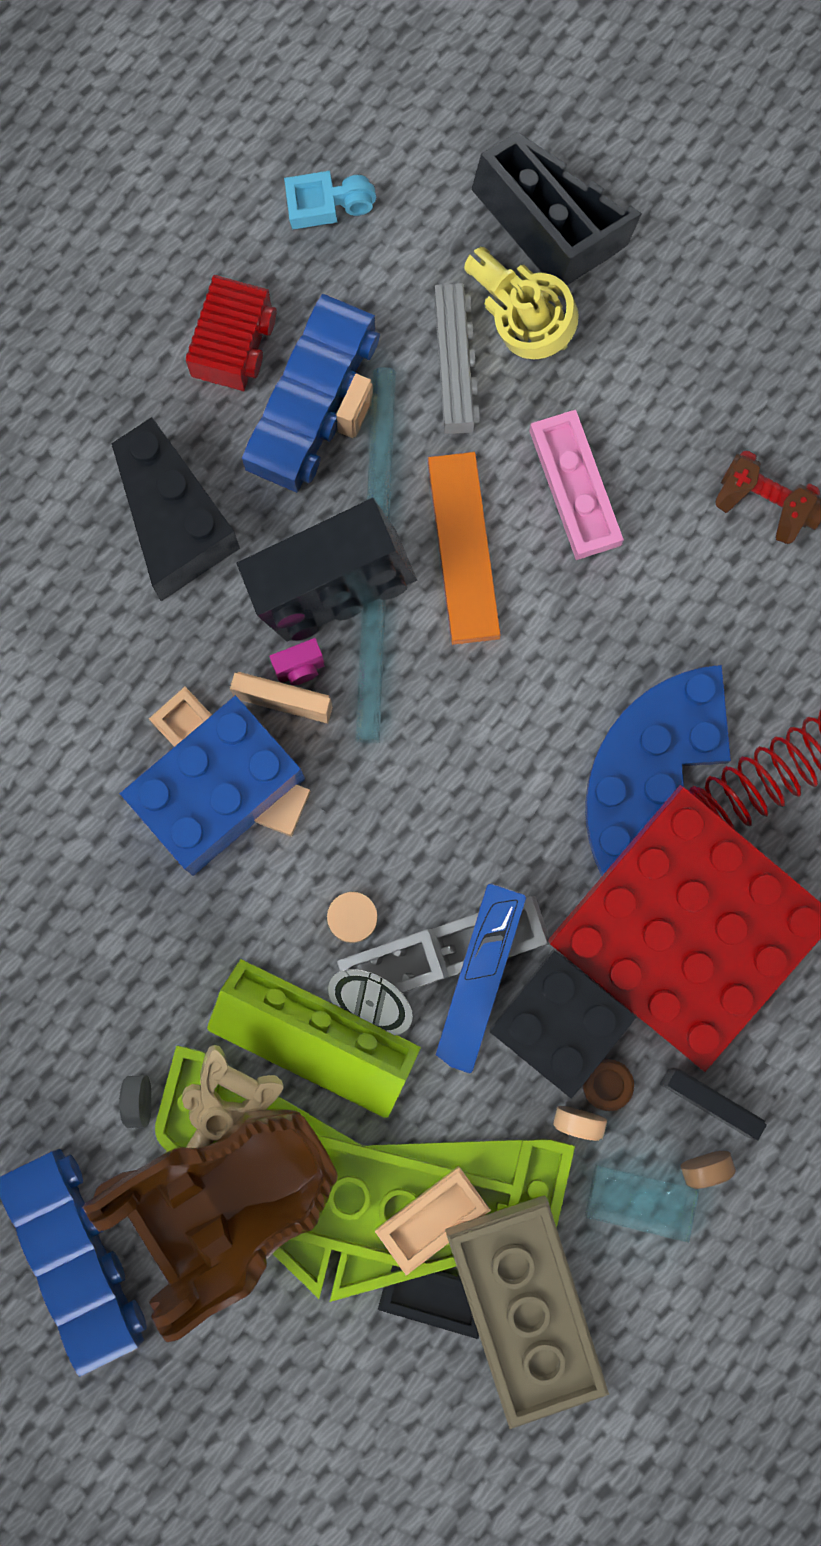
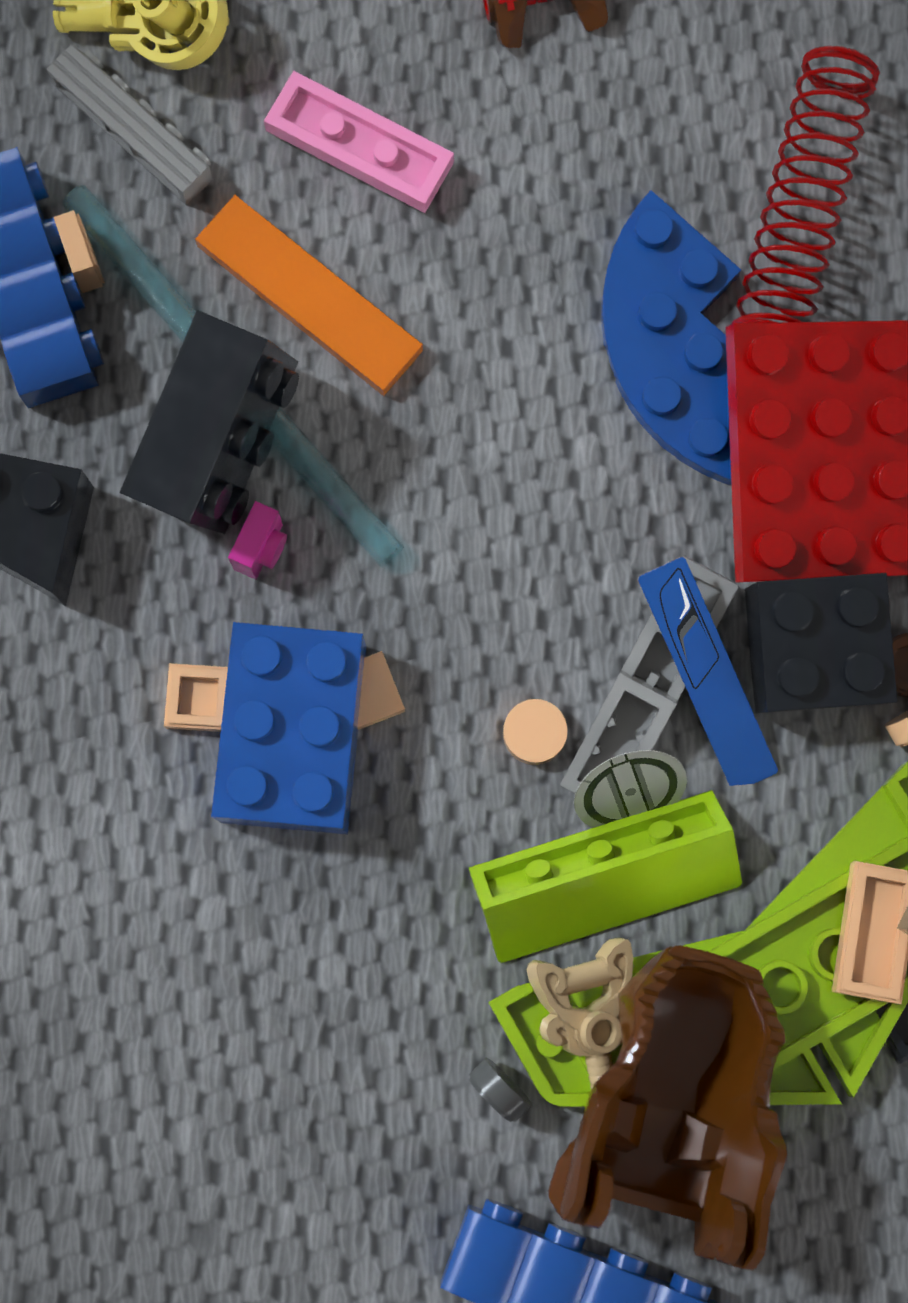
camera: 45 degrees left, 0 degrees up
(281, 697) = (275, 587): light nougat tile -> none

